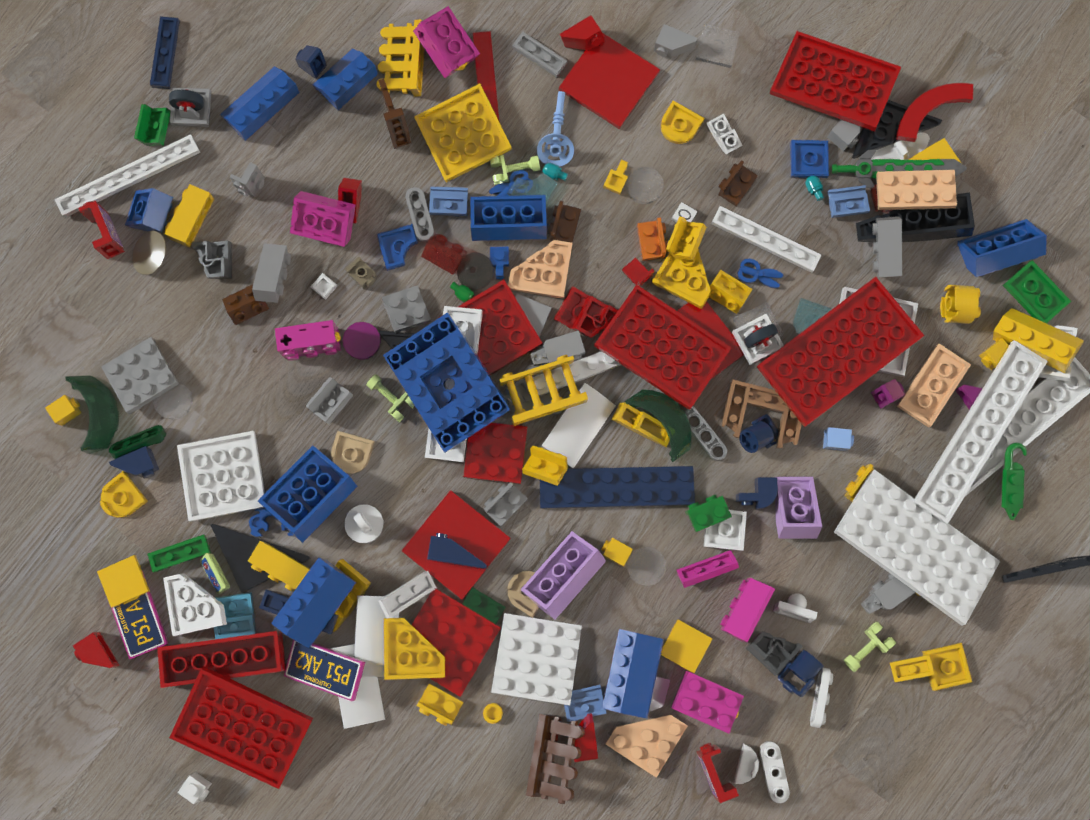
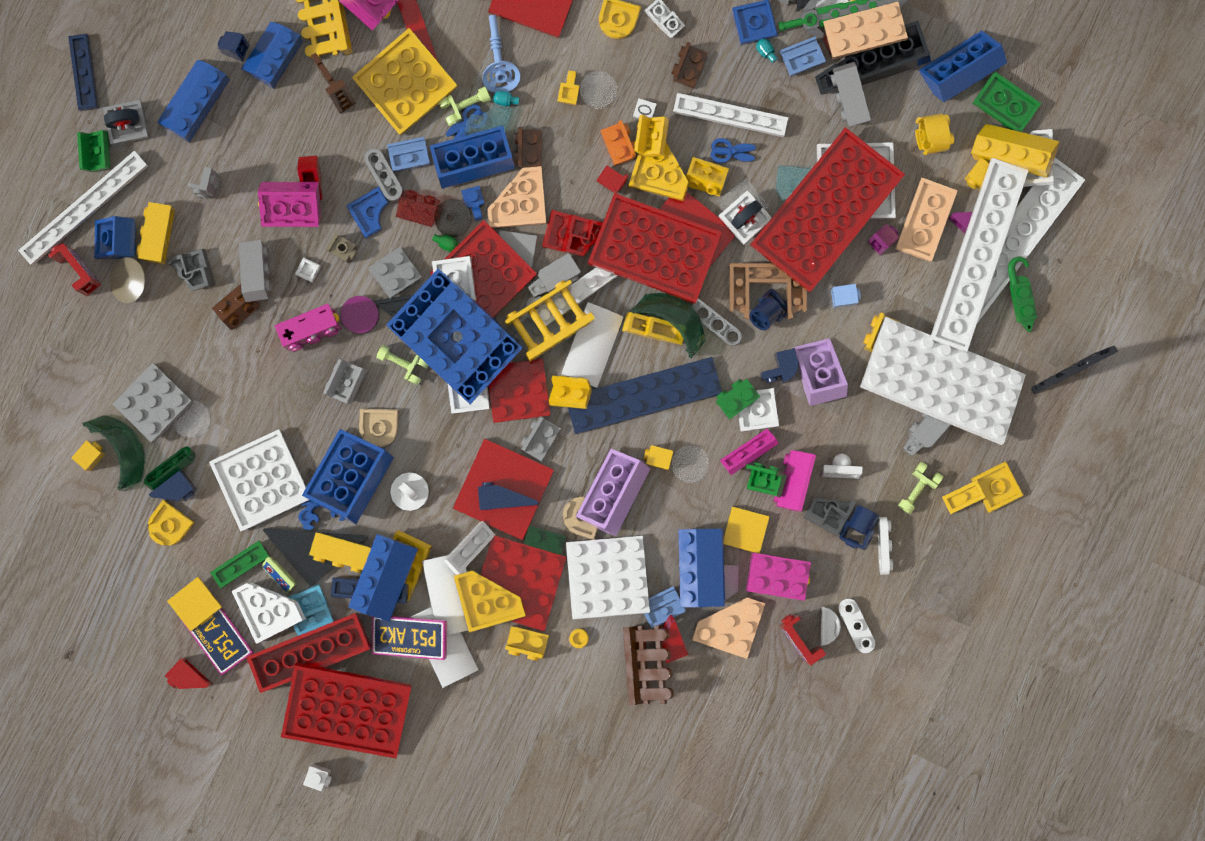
camera: 15 degrees left, 5 degrees up
(718, 602) = (765, 480): none -> green bracket

